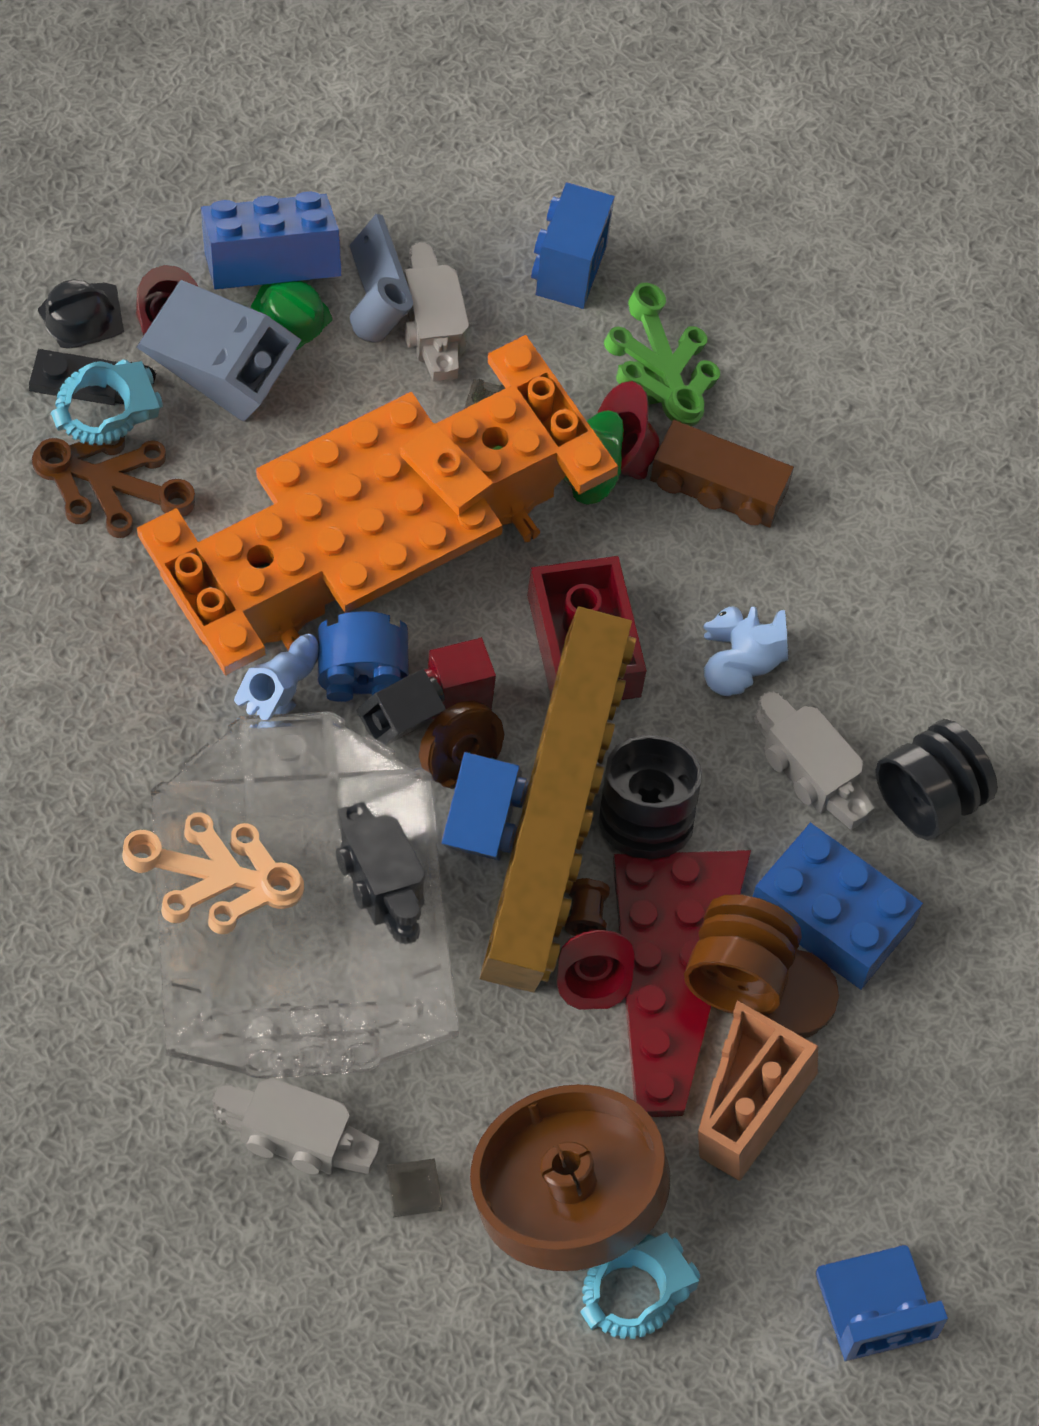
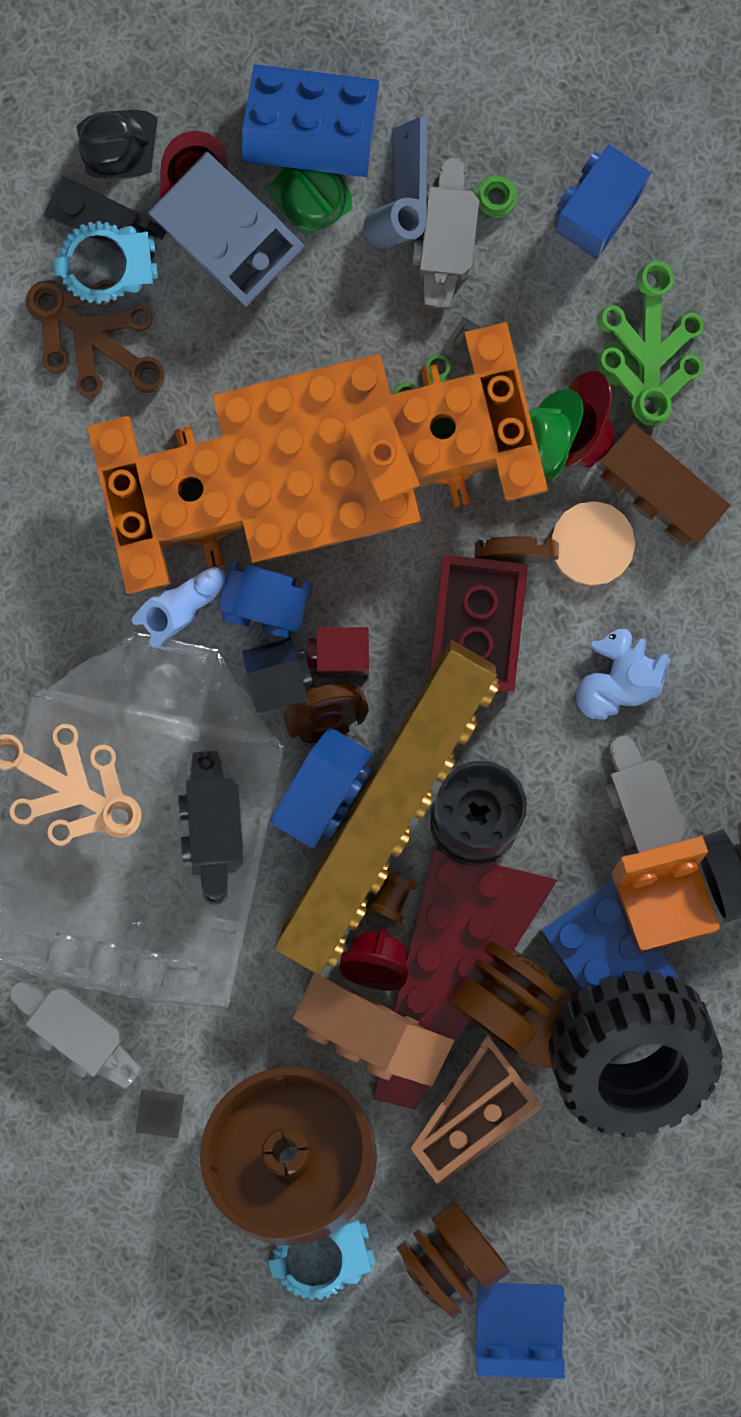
camera: 25 degrees right, 25 degrees up
(475, 266) = (500, 184): none -> bright green plate
(606, 541) = (516, 549): none -> reddish brown tile
(616, 1028) = (371, 1032): none -> nougat wedge
(671, 544) = (593, 543): none -> light nougat tile
(783, 1236) = (452, 1260): none -> reddish brown wheel
(862, 811) = (665, 894): none -> orange bracket
(948, 975) = (626, 1015): none -> black tyre

